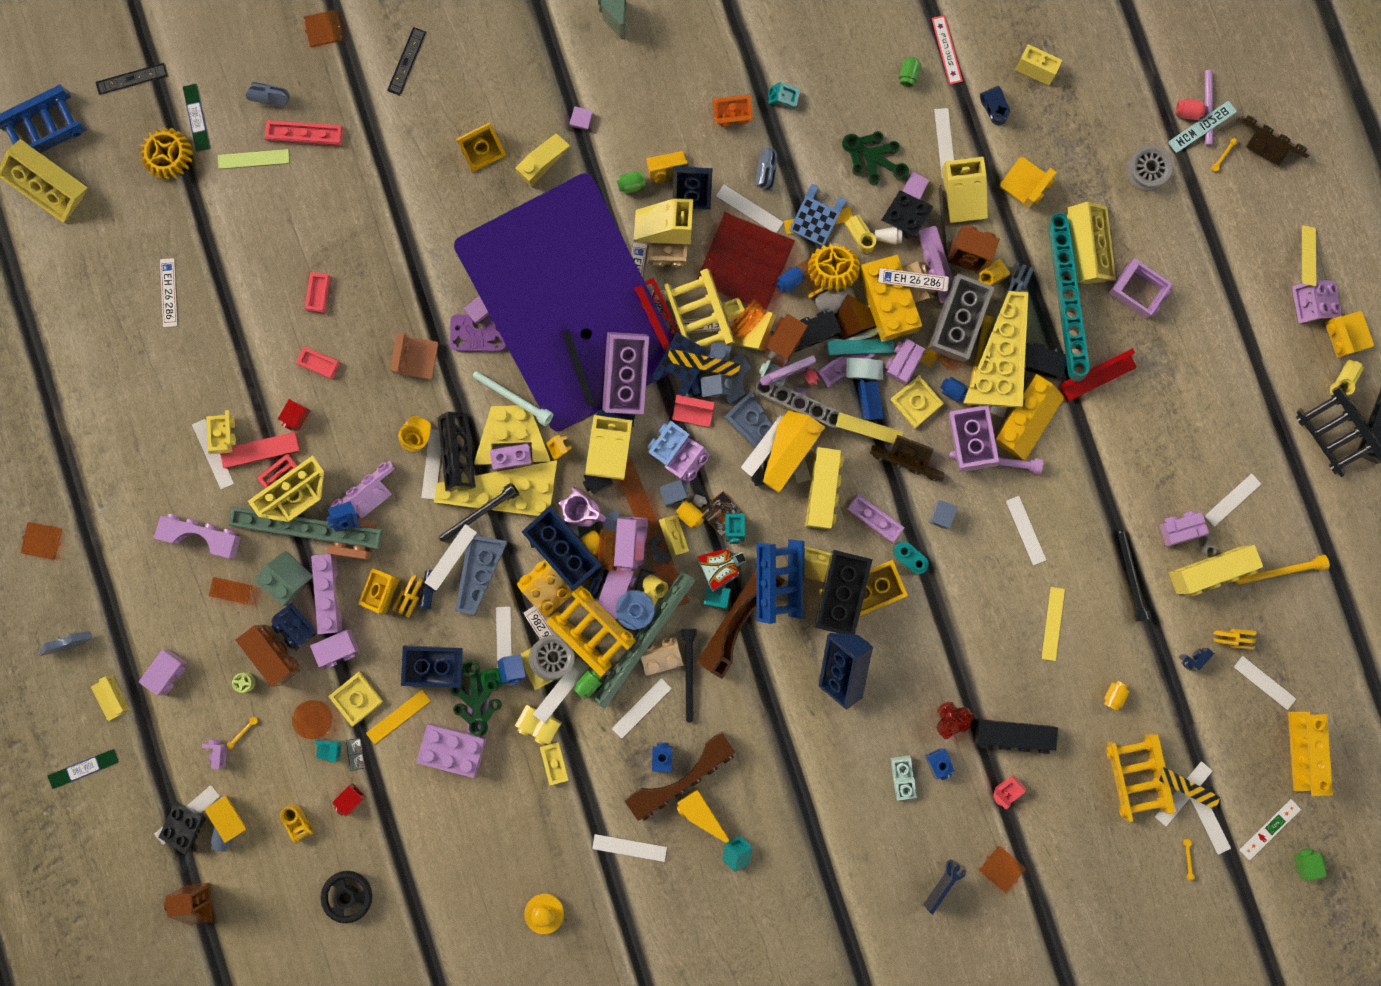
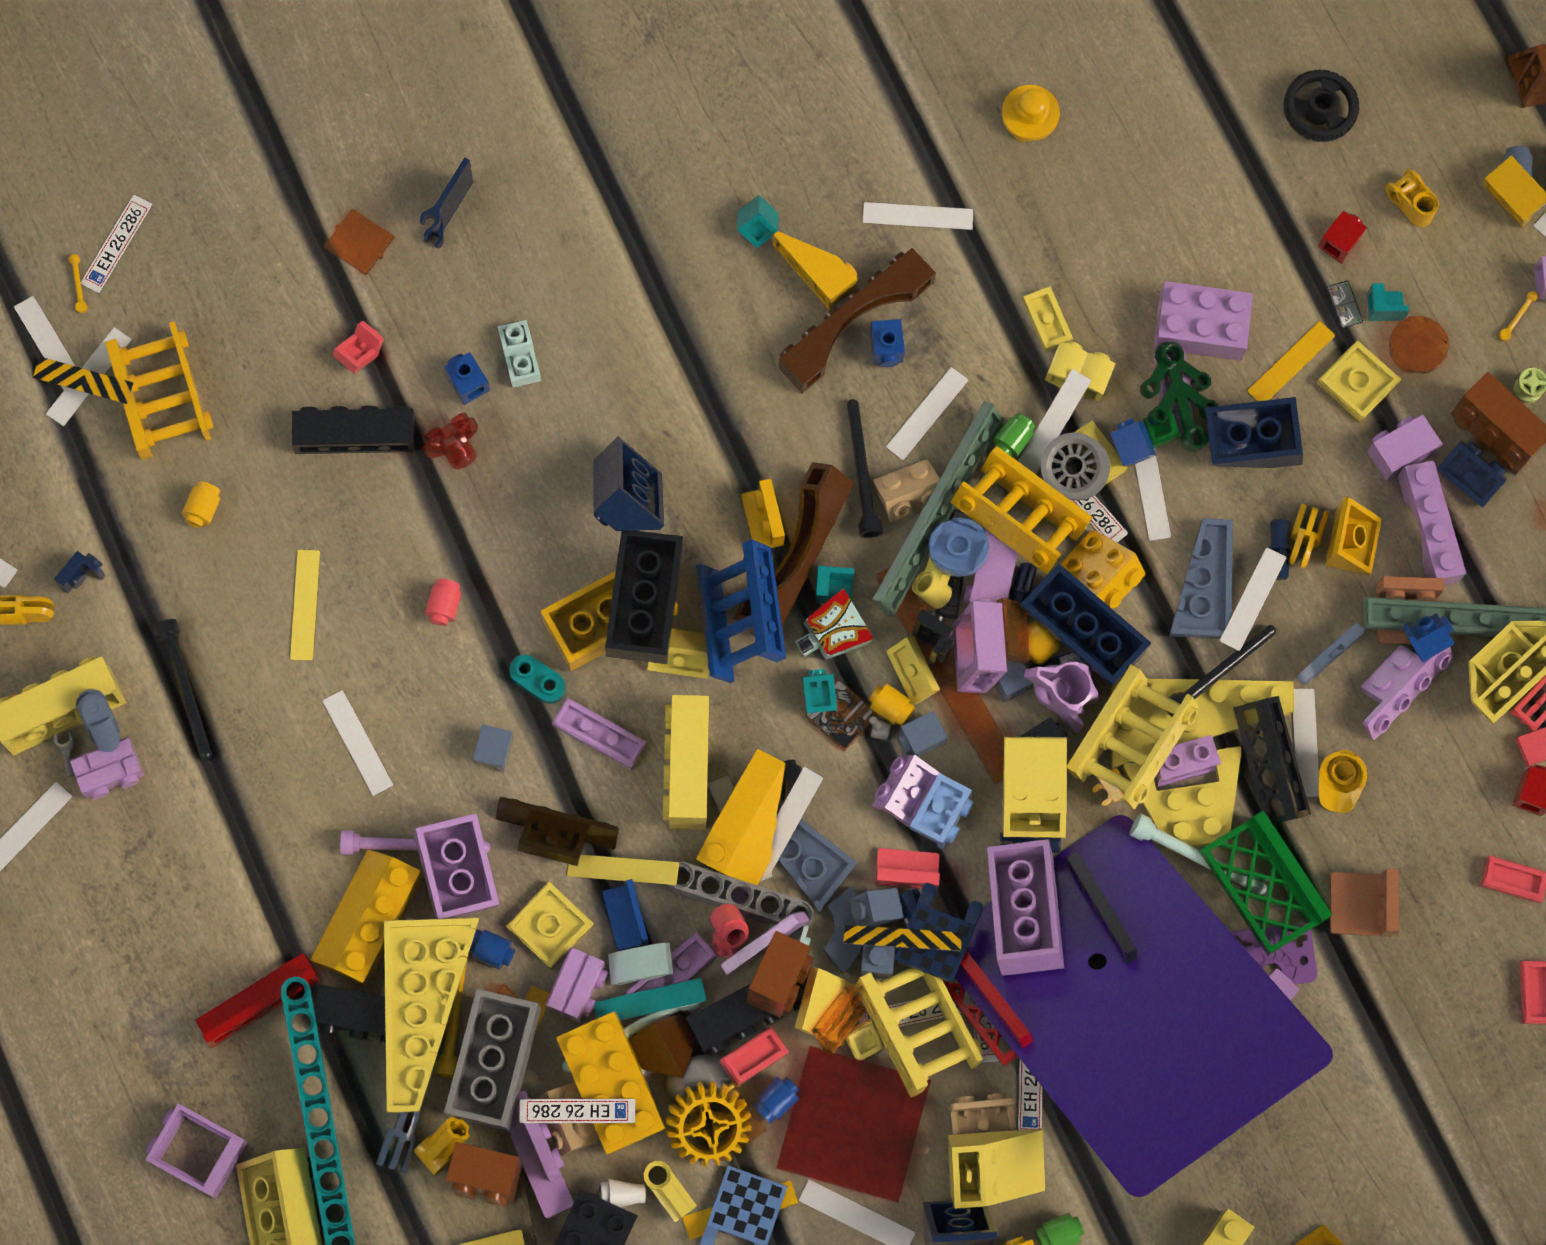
camera: 170 degrees right, 10 degrees down
(284, 578) = (1501, 541): sand green slope -> none
(407, 515) = (1330, 654): none -> sand blue tile
(459, 383) = (1286, 869): none -> green fence
(561, 475) = (1117, 712): none -> light yellow fence
(757, 647) = (763, 515): none -> yellow bracket
(802, 305) = (753, 1056): none -> coral tile
(809, 382) = (729, 925): none -> coral brick
(966, 613) = (443, 602): none -> coral brick
(1162, 885) = (116, 243): none -> white sticker
(1192, 553) = (98, 719): none -> sand blue arm

